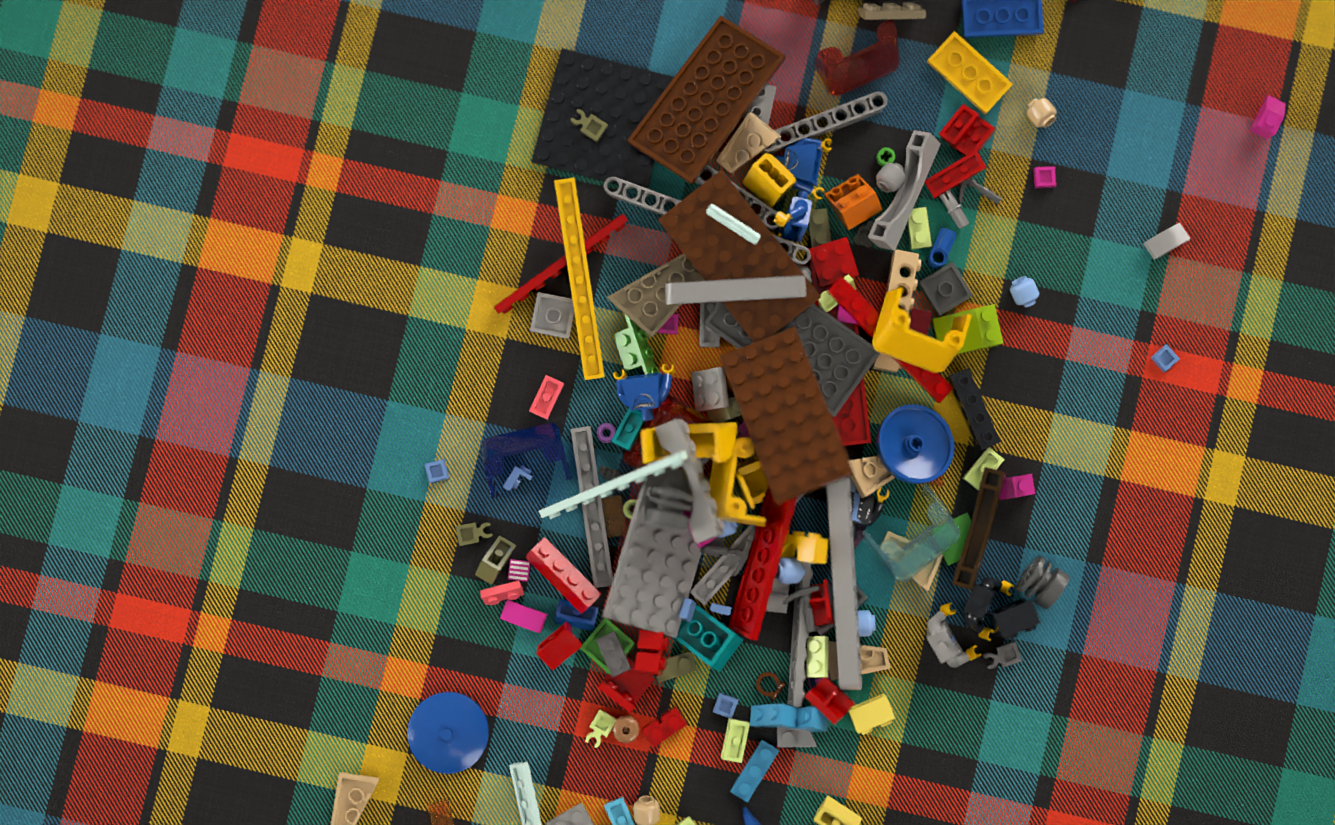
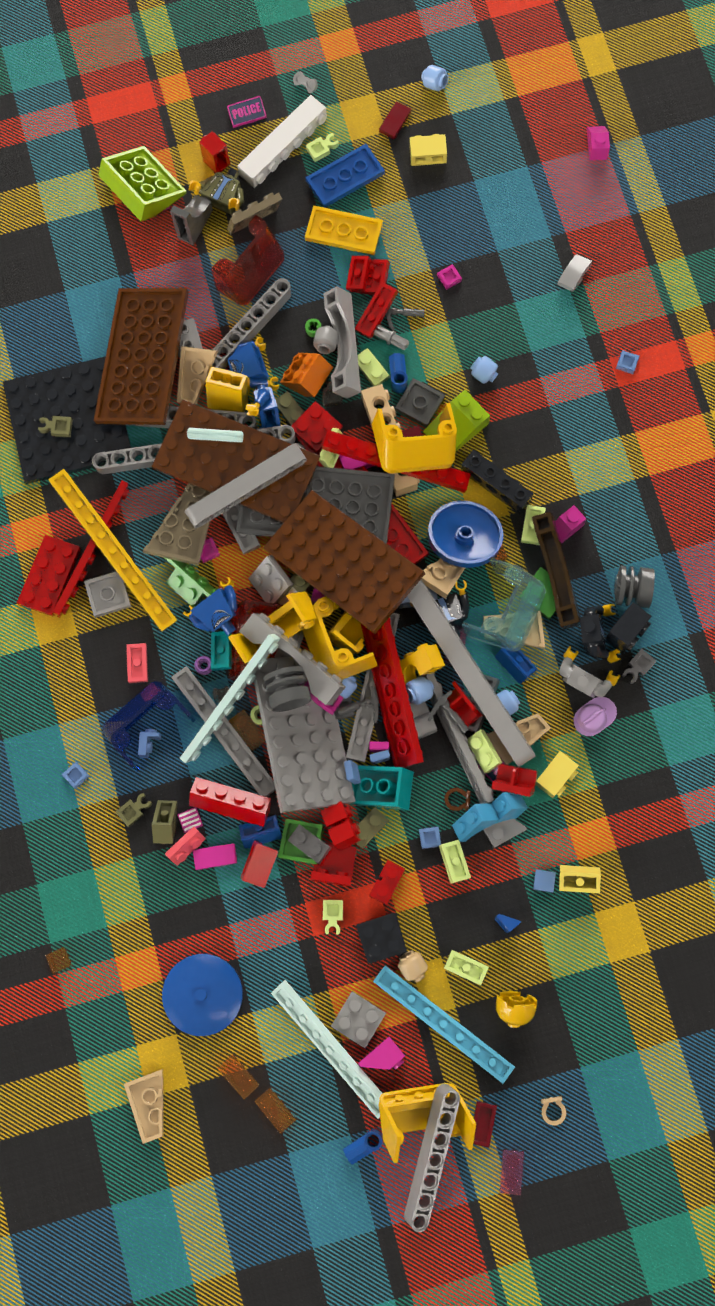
camera: 20 degrees left, 10 degrees down
(337, 631) = (58, 960): none -> clear orange tile
(508, 266) = (48, 575): none -> red plate
(624, 722) = (362, 903): medium nougat head -> none
(632, 772) = (381, 938): none -> black brick
(724, 599) = (378, 746): none -> dark pink tile
(754, 770) = (486, 879): dark azure plate -> none
(805, 801) = (544, 881): none -> medium blue tile
(893, 591) = (516, 664): none -> blue slope
(936, 678) = (595, 716): none -> lavender piece
(1041, 112) = (418, 229): tan head -> none
(1098, 33) = (428, 150): none -> light yellow brick

